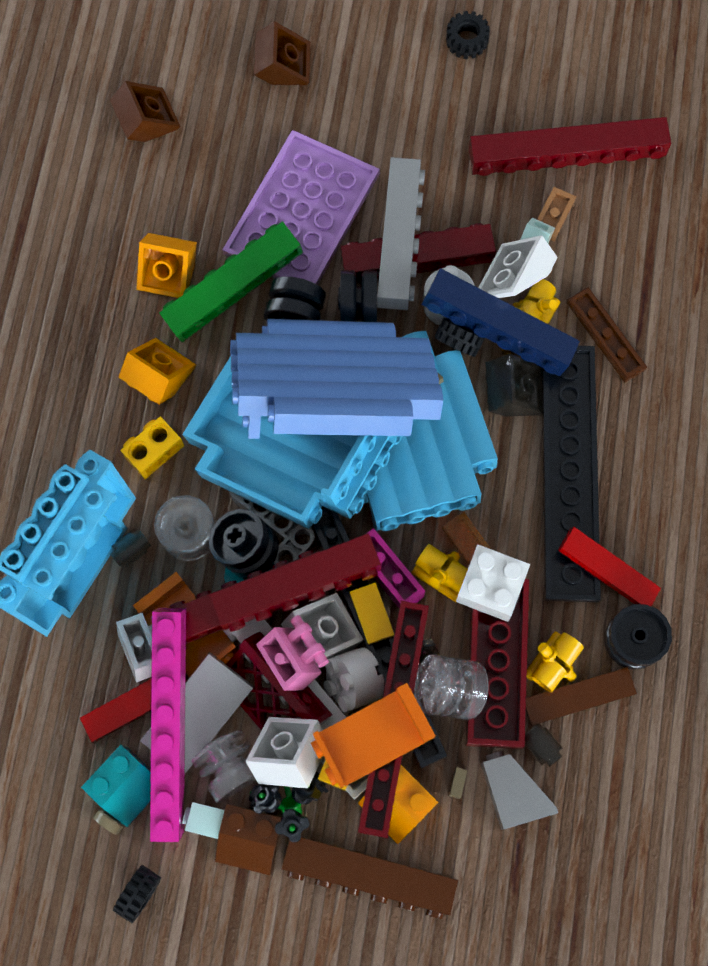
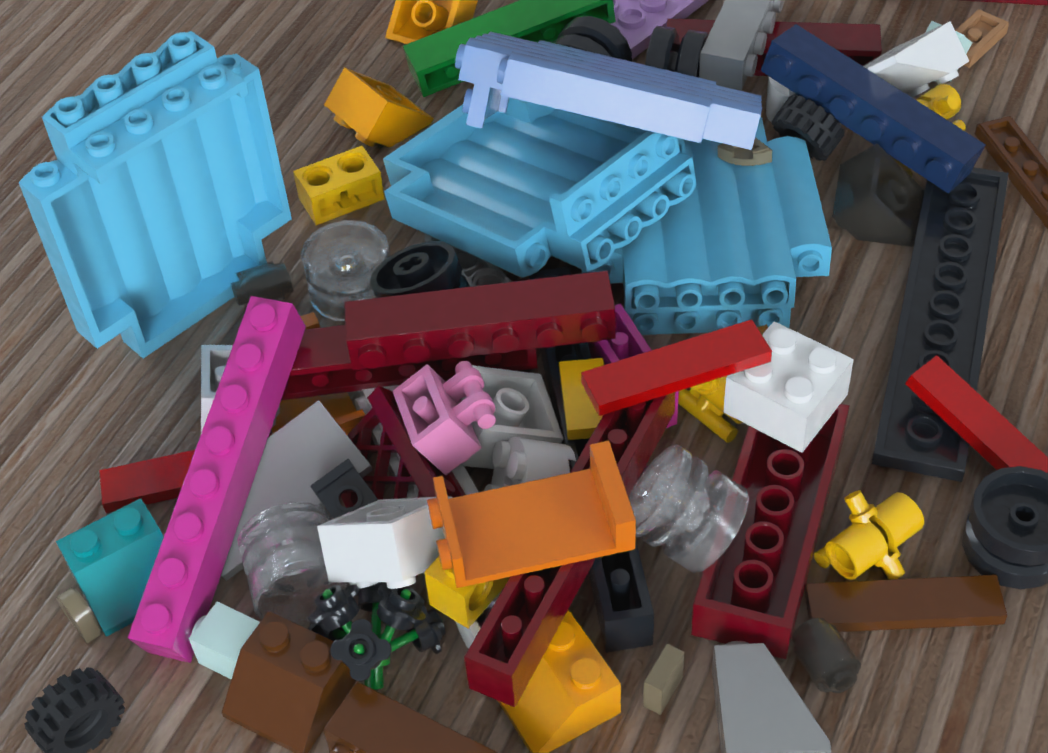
camera: 15 degrees right, 25 degrees down
(243, 709) = (338, 481): none -> black brick
(428, 602) = (675, 367): none -> red tile

